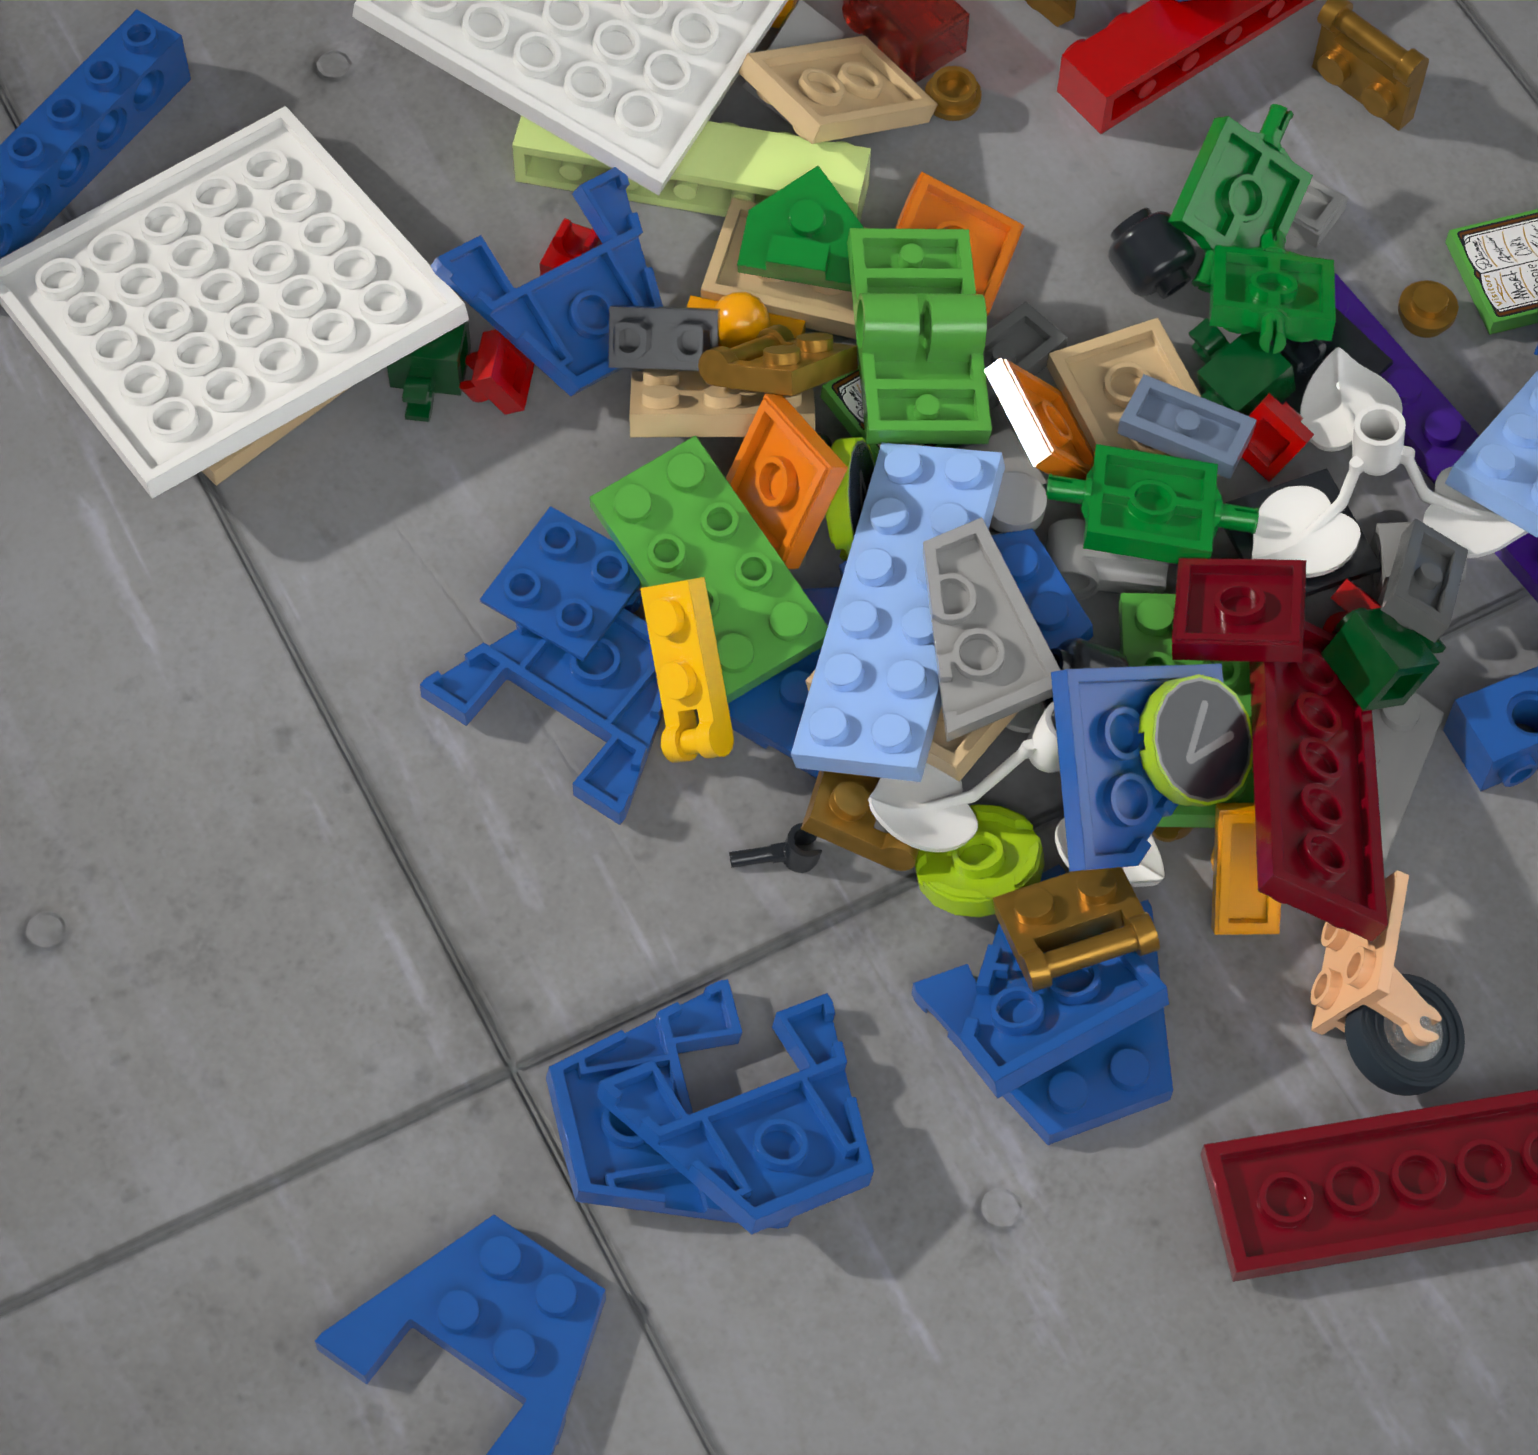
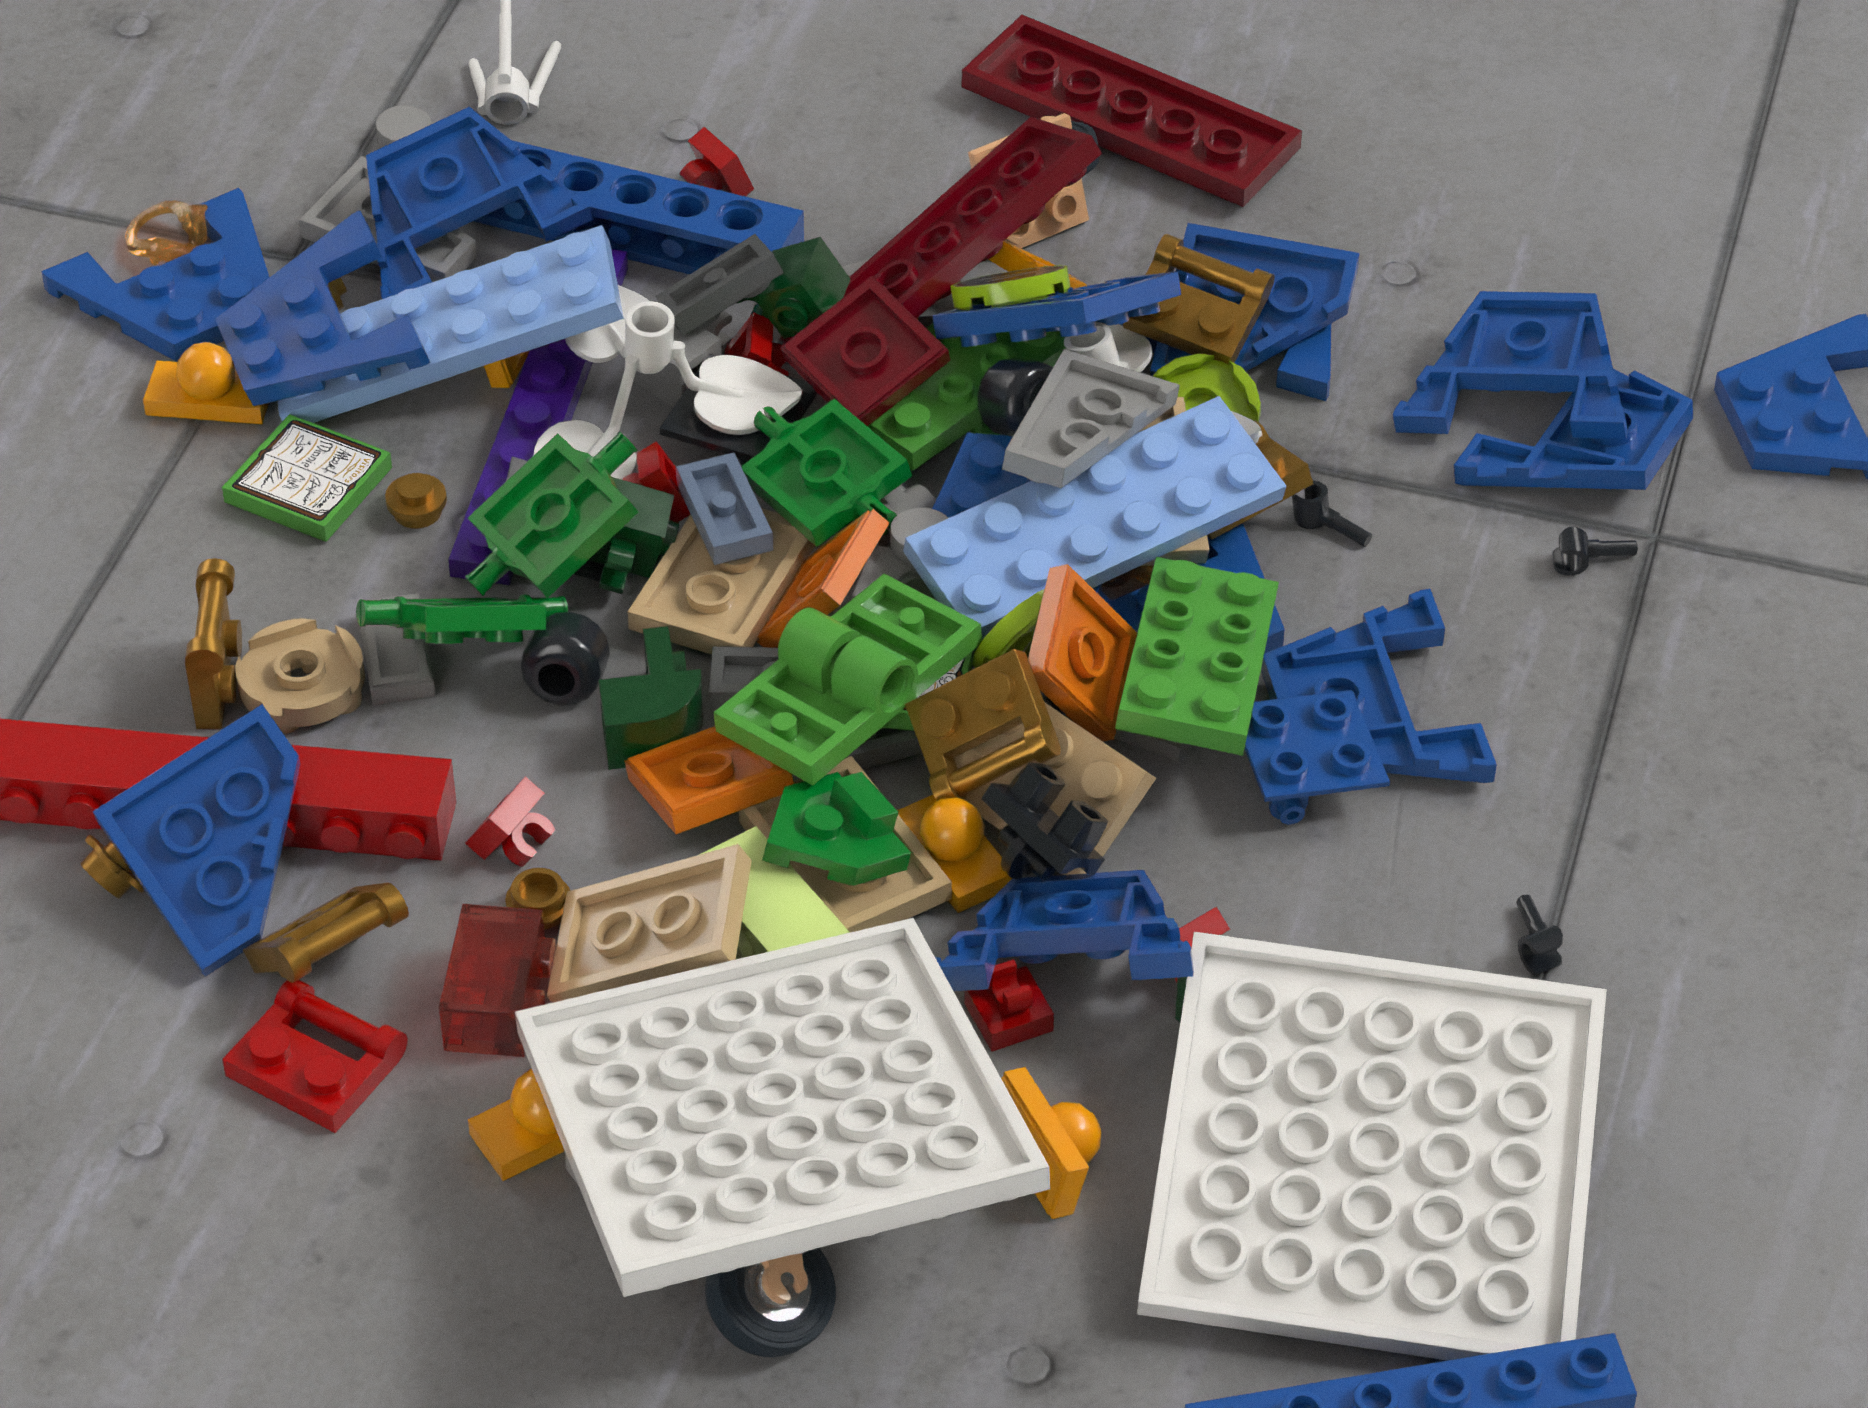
camera: 135 degrees left, 15 degrees down
(260, 580) = (1540, 946): none -> black hand
(450, 172) = (1065, 1135): none -> light orange tile
(556, 979) = (1575, 550): none -> black hand
(687, 671) = (1290, 608): yellow plate -> none
(1034, 117) = (508, 823): none -> tile
(1049, 271) = (652, 707): none -> dark green brick
(1337, 116) = (308, 700): none -> tan plate

